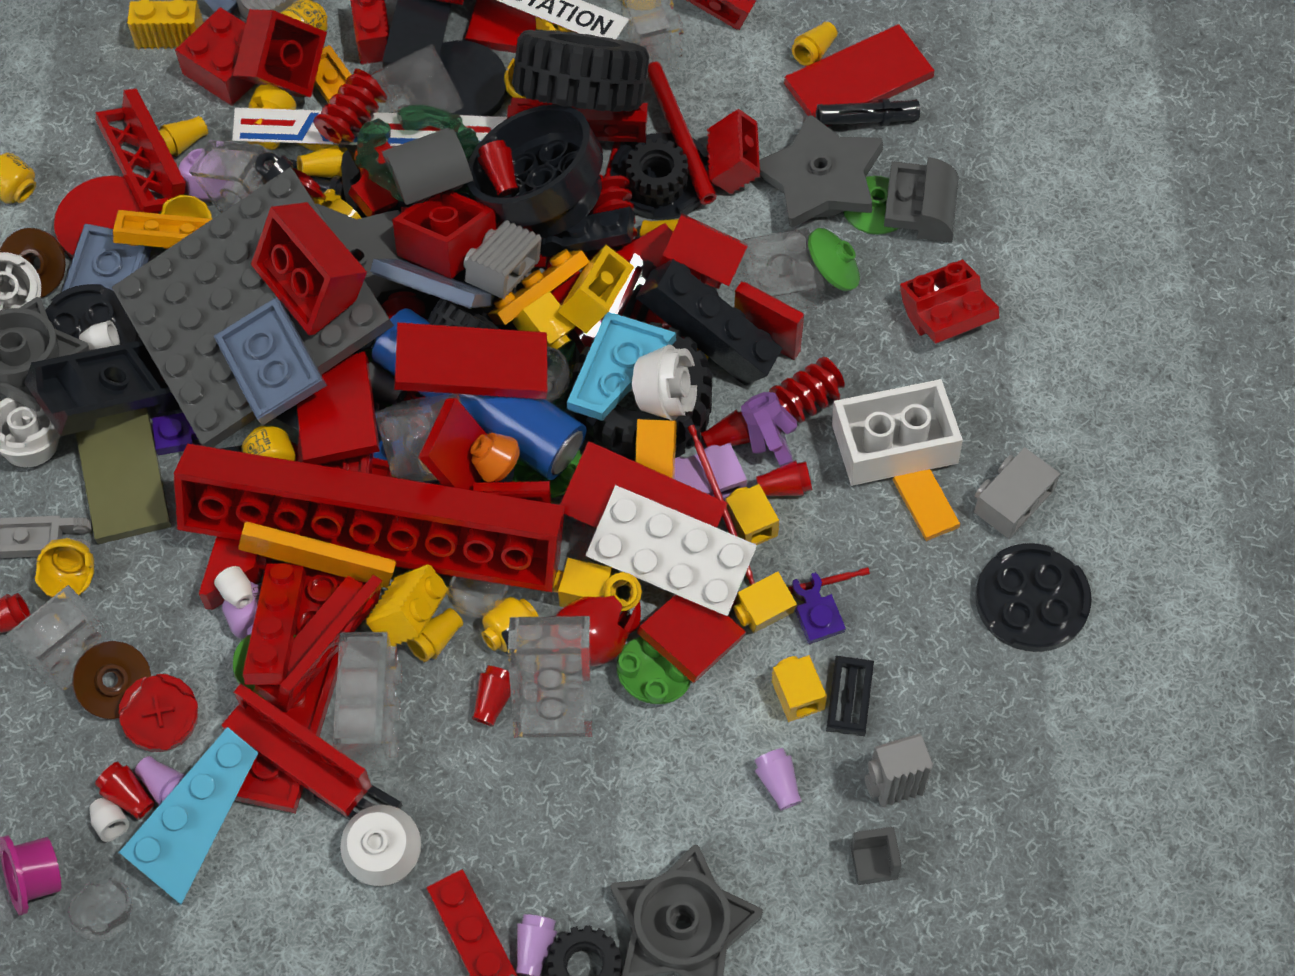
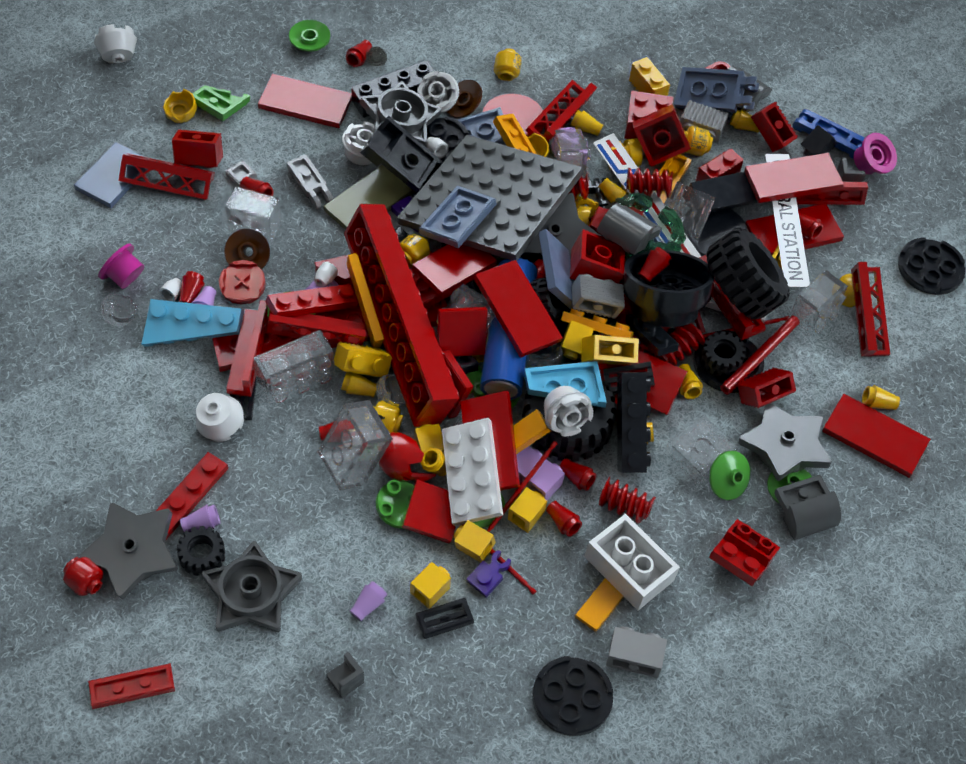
camera: 55 degrees right, 5 degrees down
(64, 564) = (297, 200): yellow hair -> none
(280, 165) = (584, 163): black tile -> none
(307, 266) = (521, 200): red slope -> none
(494, 456) = (470, 350): orange cone -> none
(705, 251) = (674, 393): red brick -> none
(765, 423) = (588, 489): medium lavender rock -> none
(772, 316) = (660, 456): red tile -> none
(837, 113) = (870, 471): black pin -> none
(899, 770) = (403, 660): light grey brick -> none

